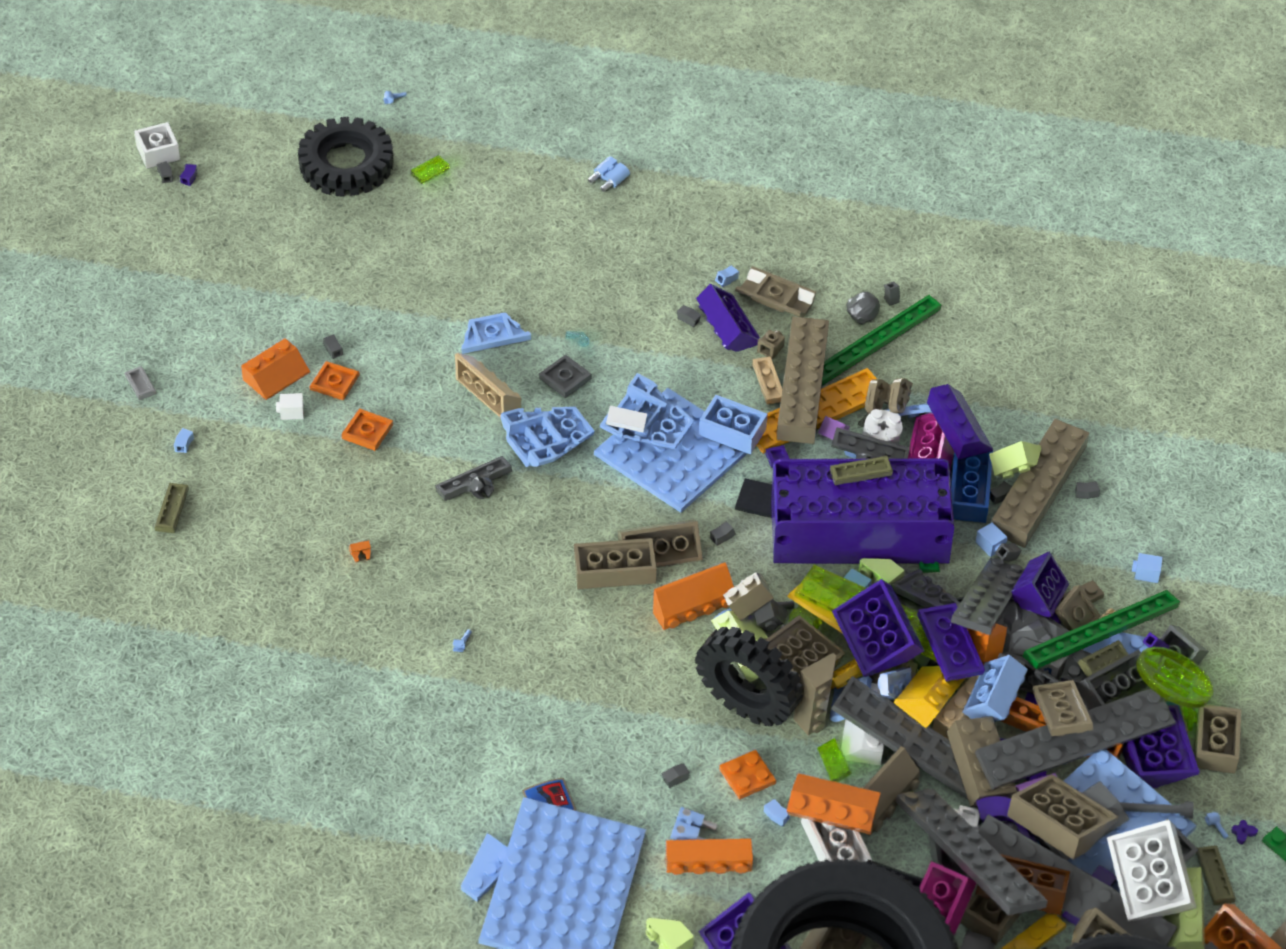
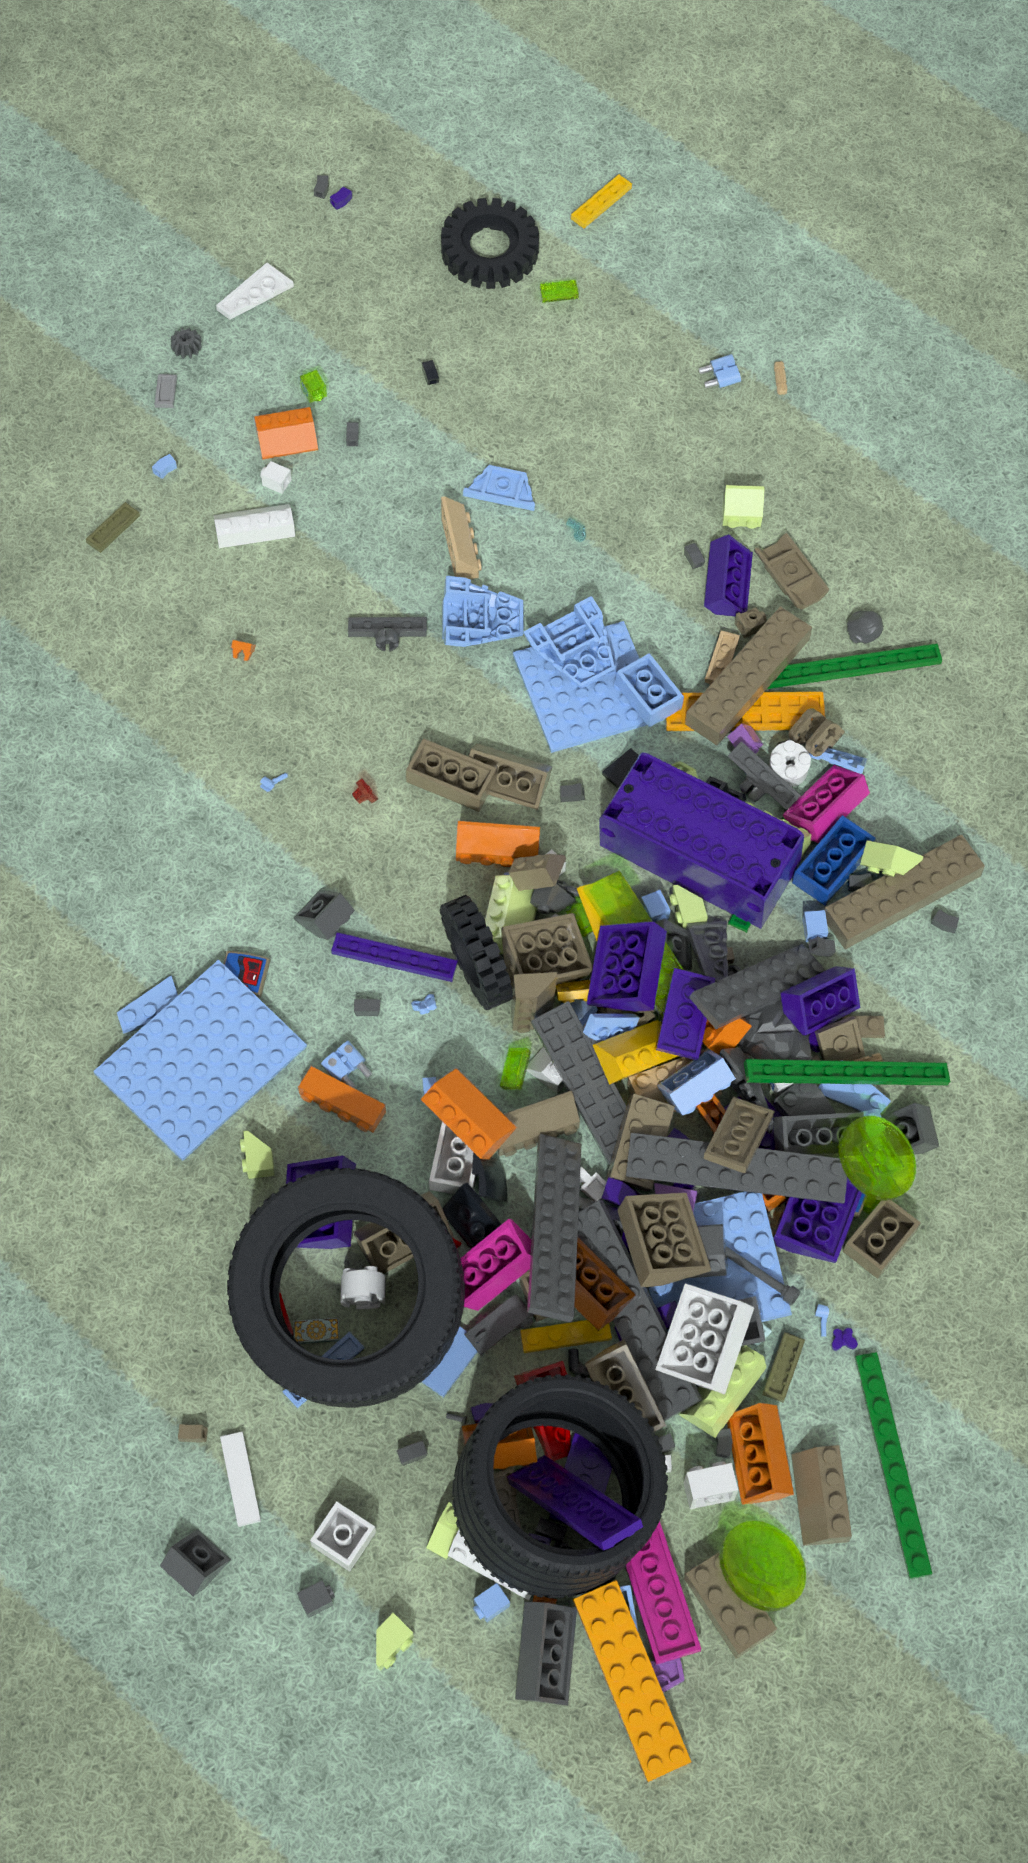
camera: 30 degrees right, 15 degrees up
(133, 337) = (186, 343): none -> dark grey gear
(157, 145) = (329, 155): white brick -> none
(166, 271) = (258, 288): none -> white wing
(272, 324) = (313, 386): none -> clear neon green brick
(299, 451) = (254, 525): none -> white slope
(334, 380) = (333, 468): orange tile -> none
(365, 273) = (430, 372): none -> black piece
(367, 429) = (327, 532): orange plate -> none
(389, 97) = (573, 196): light blue hand -> none
(415, 90) = (601, 201): none -> yellow plate
(549, 611) = (364, 792): none -> clear red tile
(565, 376) = (538, 563): dark grey plate -> none
(585, 720) = (325, 914): none -> dark grey slope
(626, 419) = (550, 638): white tile -> none
(659, 159) = (780, 377): none -> tan axle
(669, 725) = (394, 957): none -> dark purple plate
(703, 260) = (743, 506): none -> yellowish green slope
(723, 749) = (424, 1006): none -> light blue piece
(727, 276) = (758, 532): light blue piece -> none
(747, 774) = (431, 1040): orange plate -> none
(776, 453) = (675, 740): dark purple plate -> none
(861, 470) = (710, 803): olive plate -> none
(879, 849) = (491, 1178): none -> black slope
(892, 293) = (902, 625): dark grey piece -> none
(957, 422) = (859, 794): dark purple slope -> none
(1102, 658) = (827, 1103): olive plate -> none
(1147, 568) = (944, 1031): light blue brick -> none
(1153, 641) = (889, 1112): dark purple piece -> none

